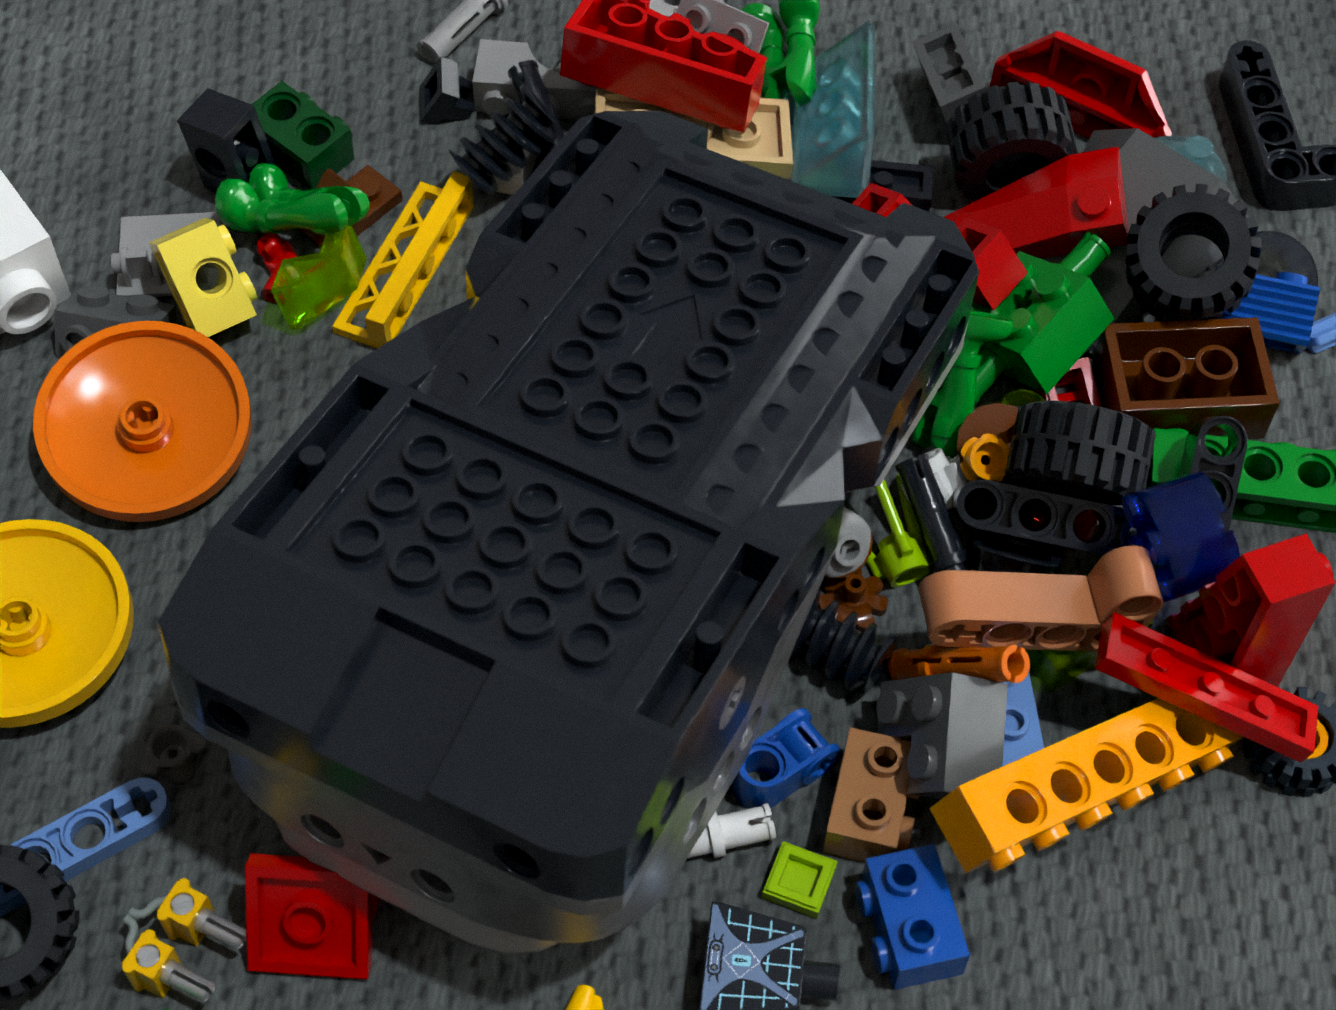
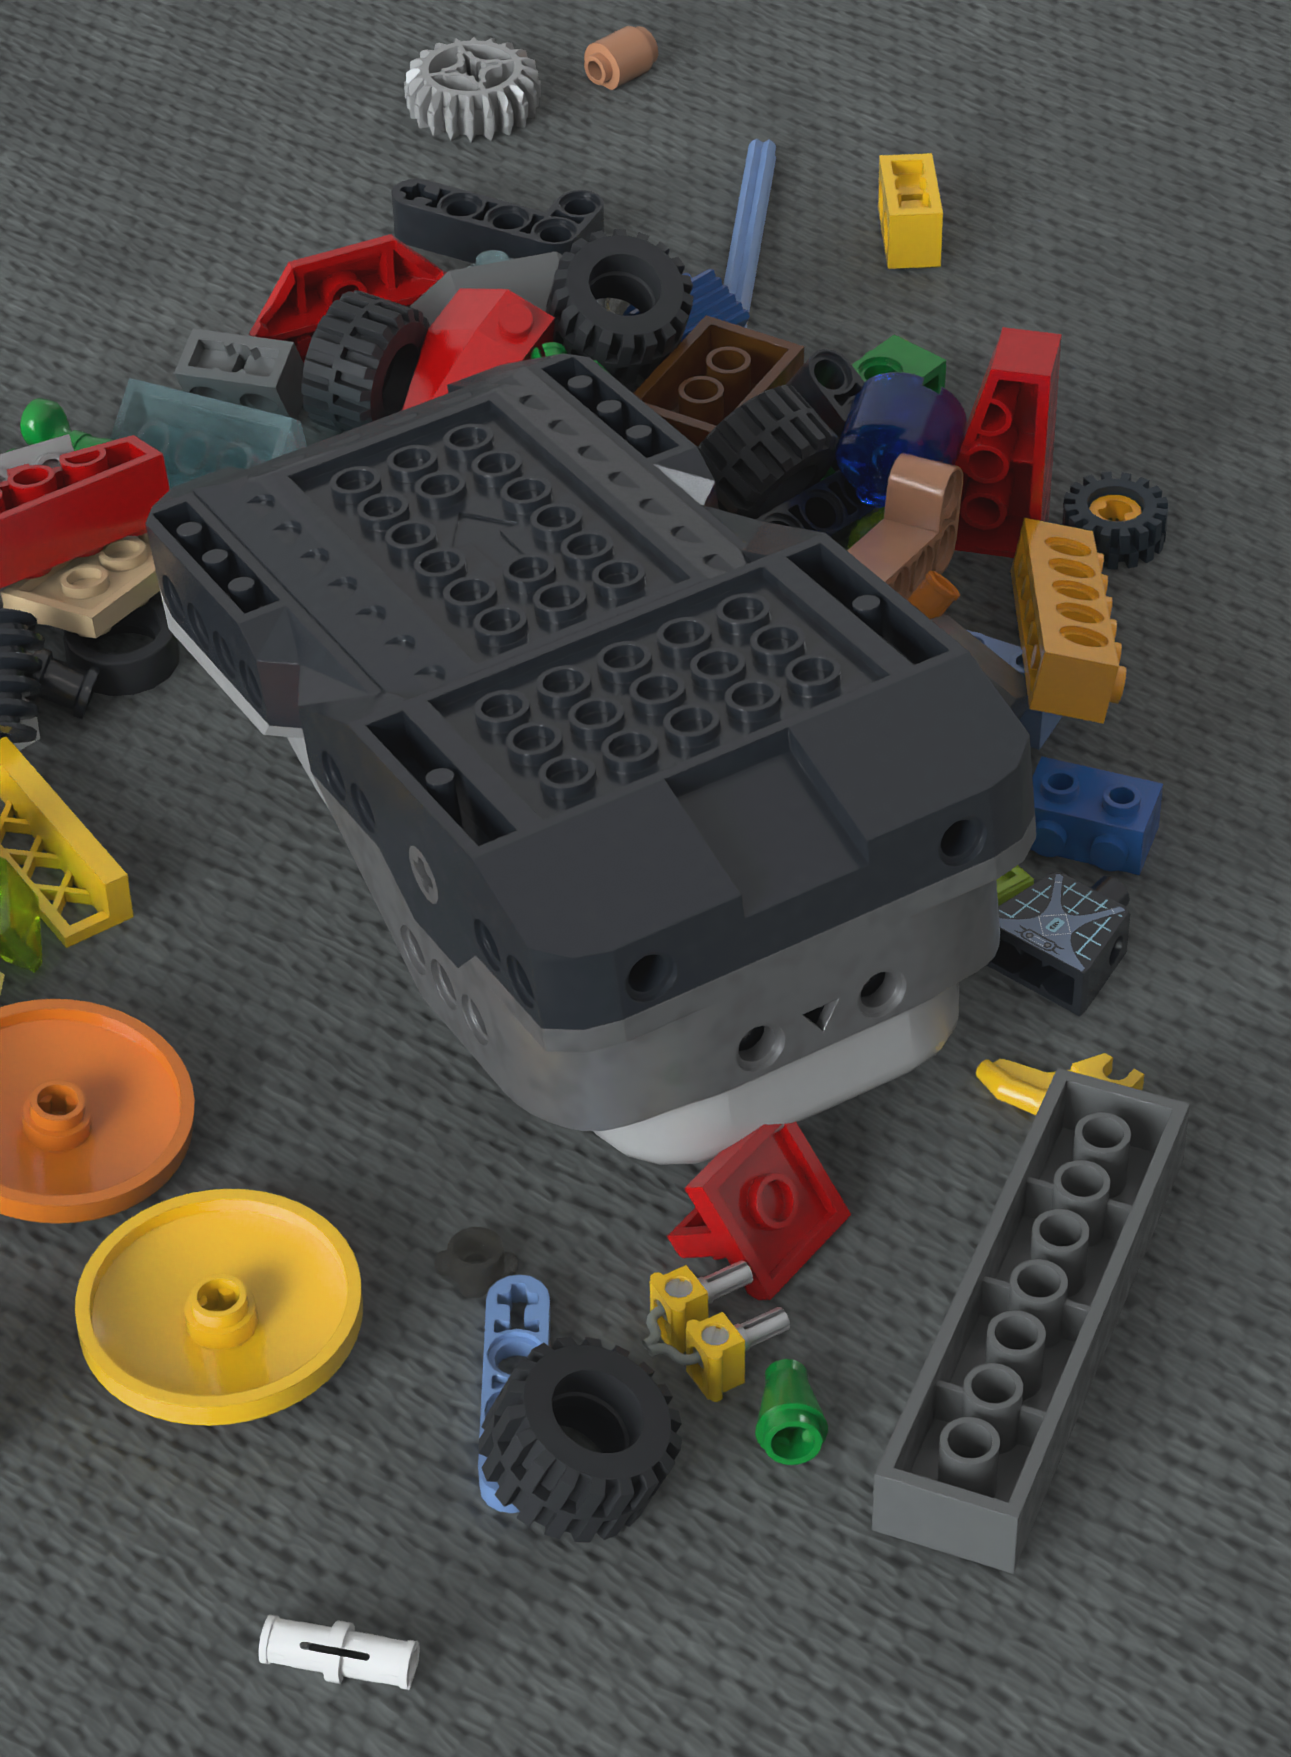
camera: 55 degrees left, 15 degrees down
(1207, 687) = (1043, 512): red plate -> none

